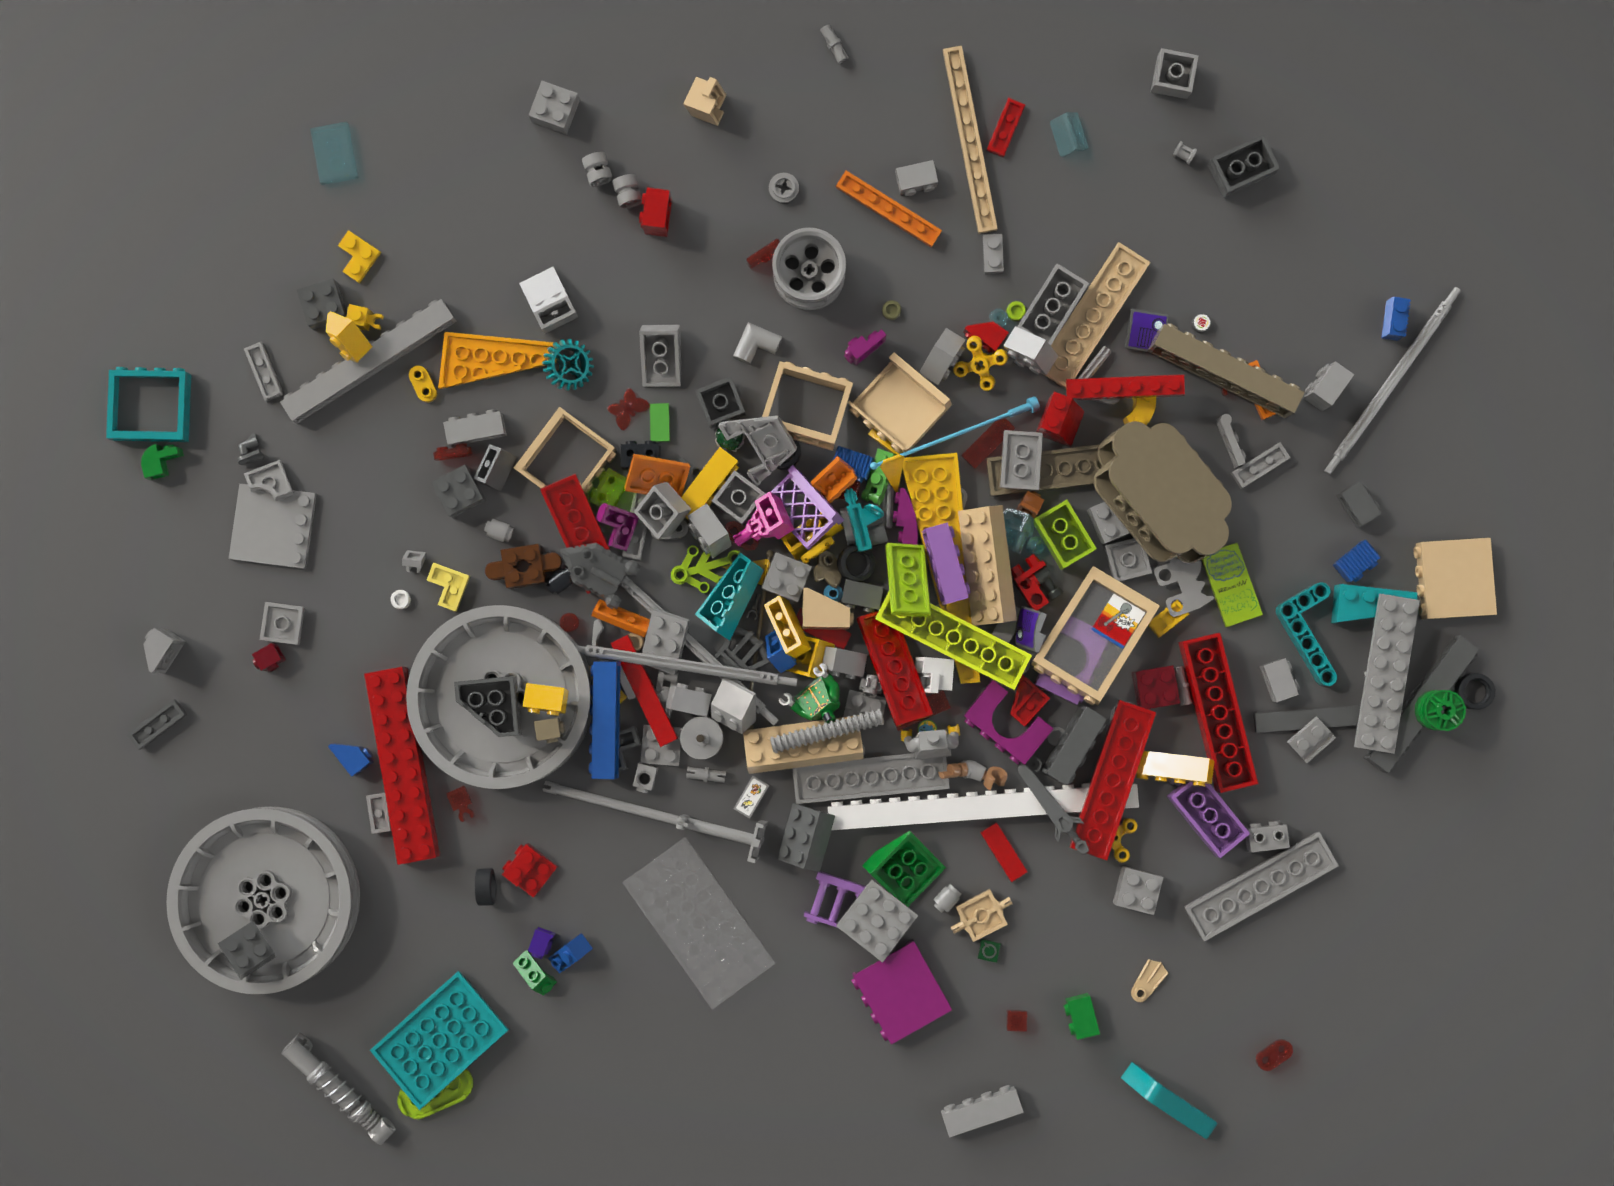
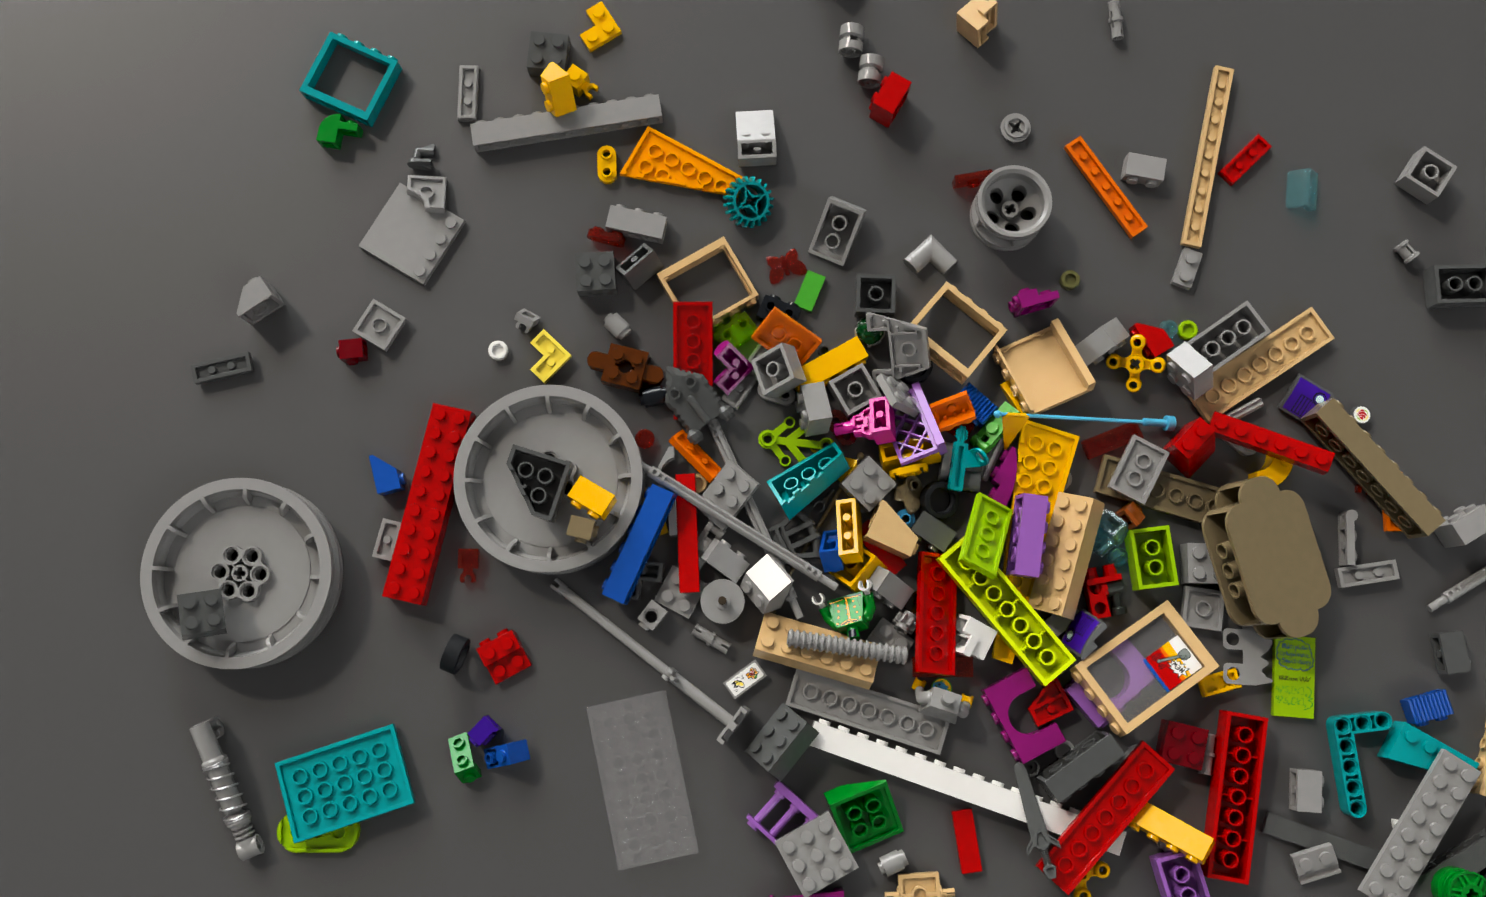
camera: 20 degrees right, 5 degrees down
(778, 486) = (898, 395): none -> light grey plate
(976, 771) = (971, 748): medium nougat piece -> none

